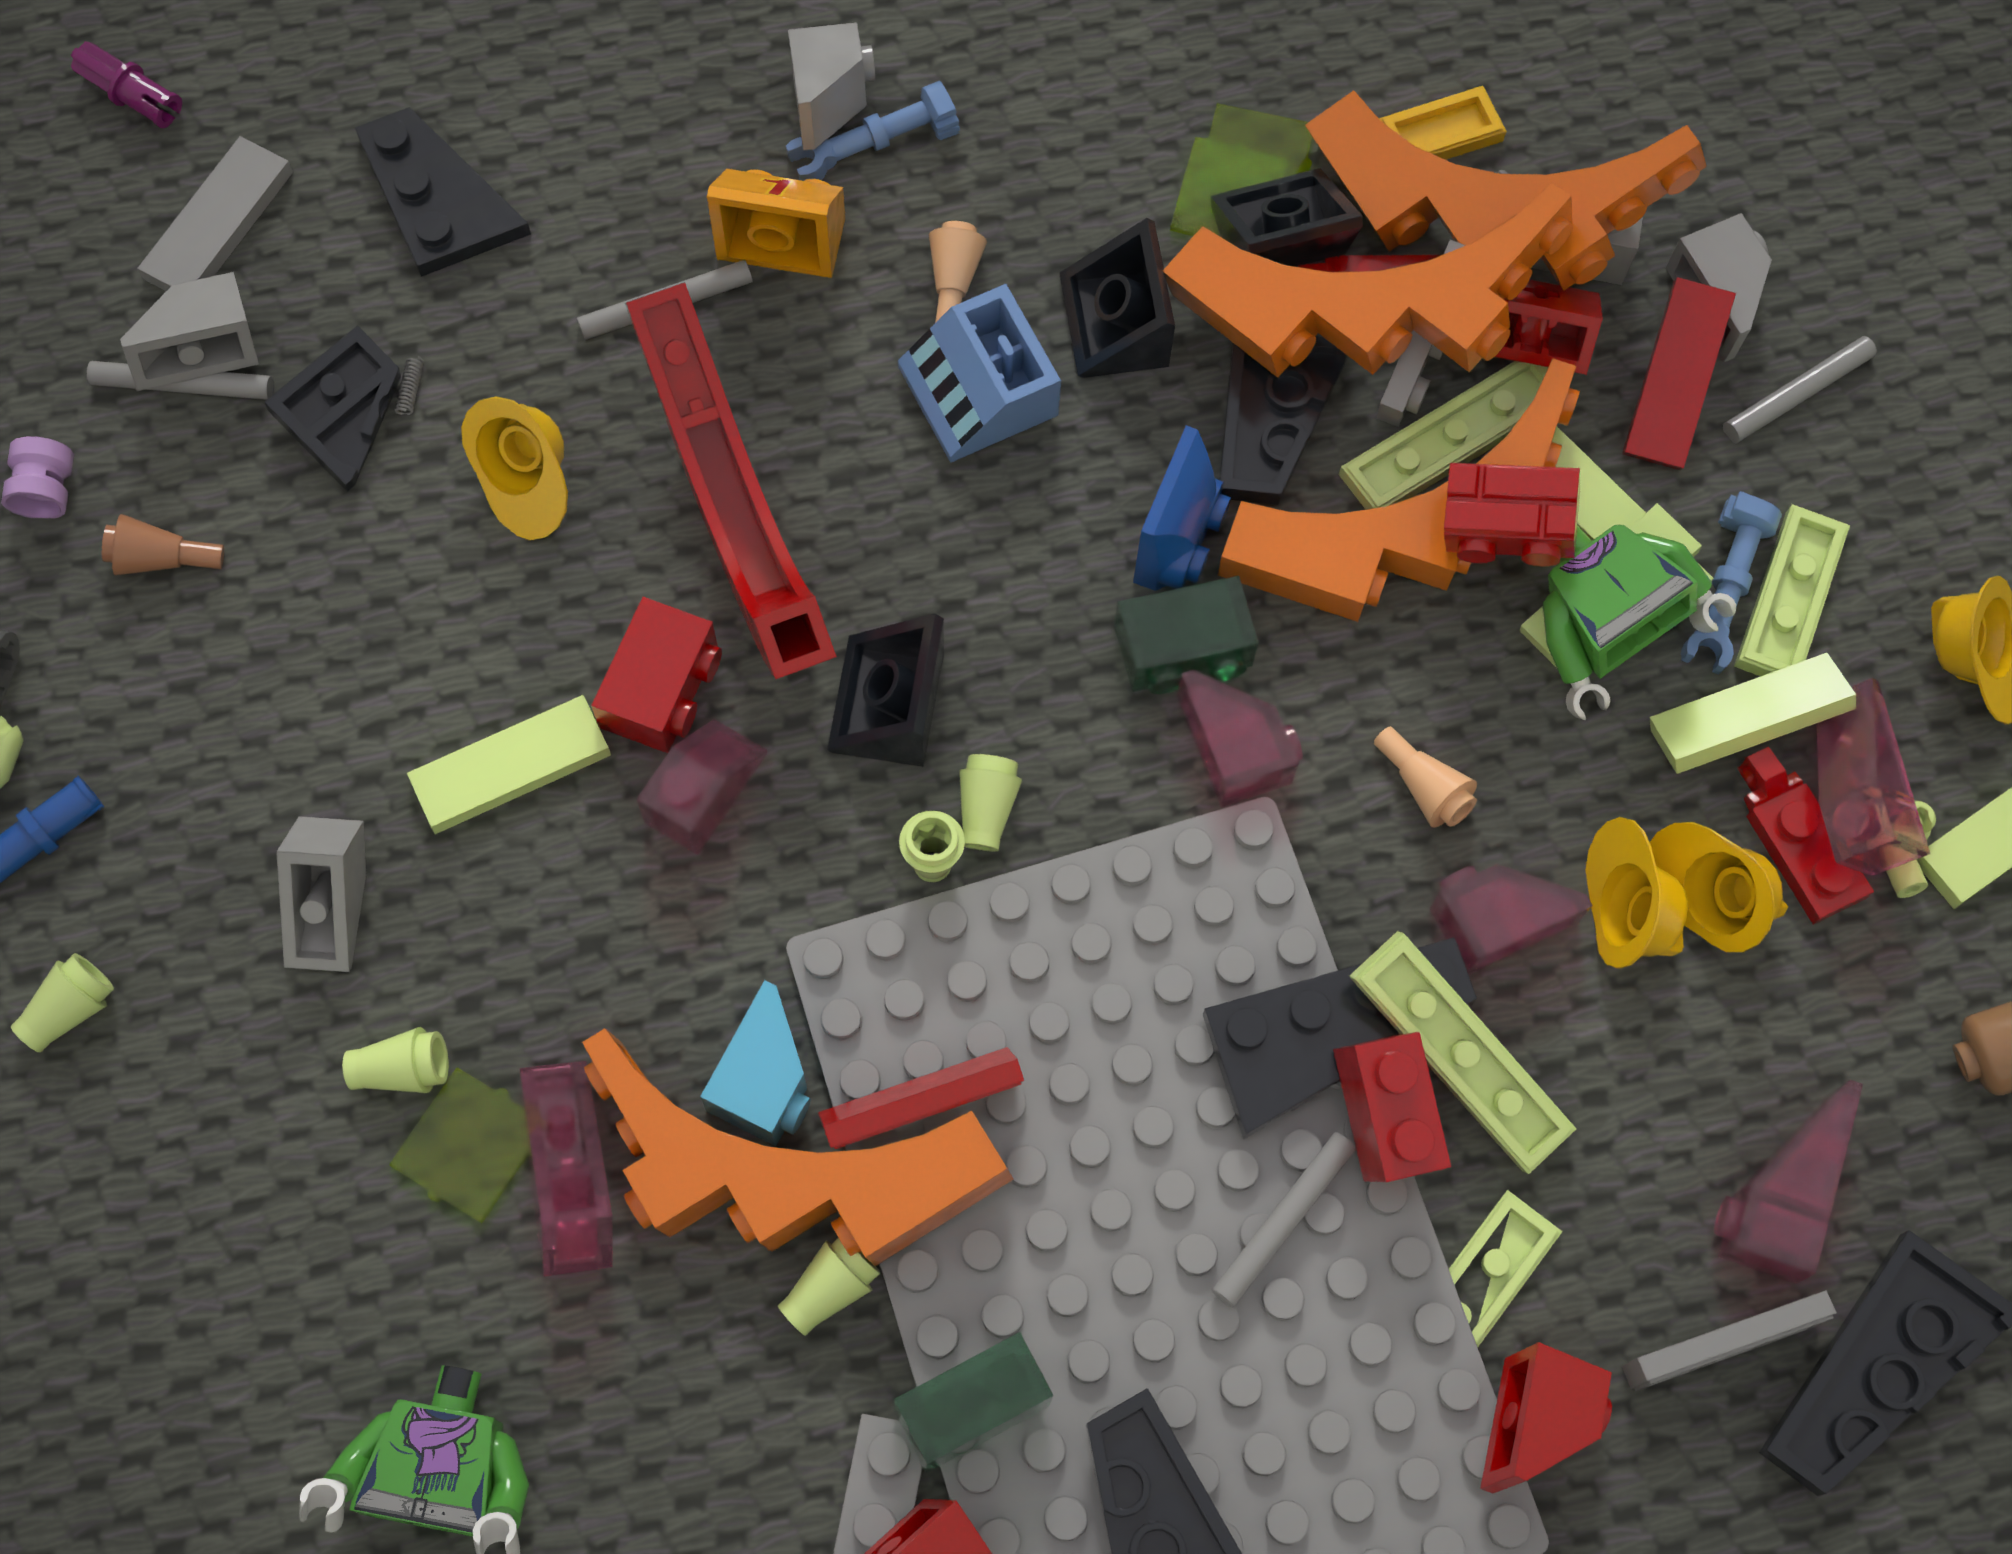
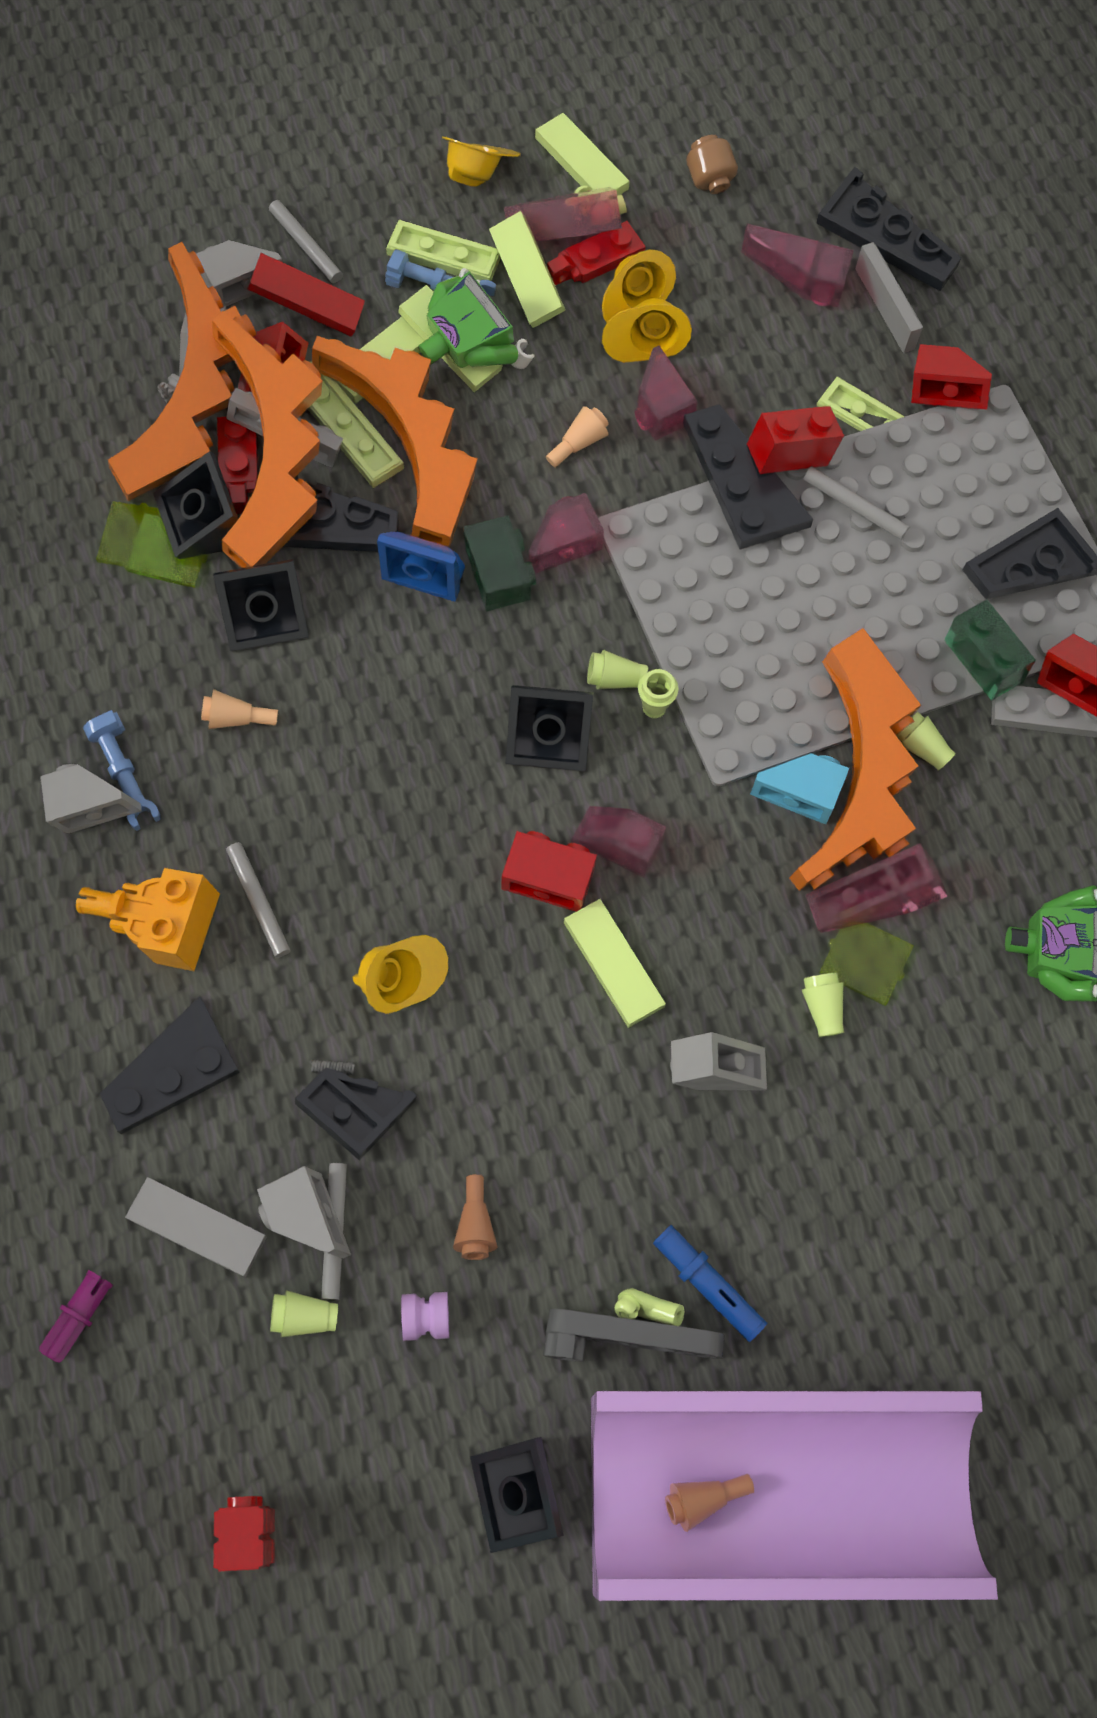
camera: 95 degrees left, 0 degrees up
(62, 1002) = (810, 1223): yellowish green cone -> none
(72, 332) = (302, 1314): none -> yellowish green cone
(641, 173) = (160, 915): none -> light orange brick
(741, 526) = (452, 822): red arch -> none
(776, 221) = (200, 819): light orange slope -> none
(921, 1098) = (816, 689): red tile -> none
(981, 374) = (320, 685): medium blue slope -> none
(1450, 124) = (114, 421): yellow tile -> none
(1463, 1052) = (737, 420): yellowish green tile -> none
(1512, 512) = (426, 365): red brick -> none

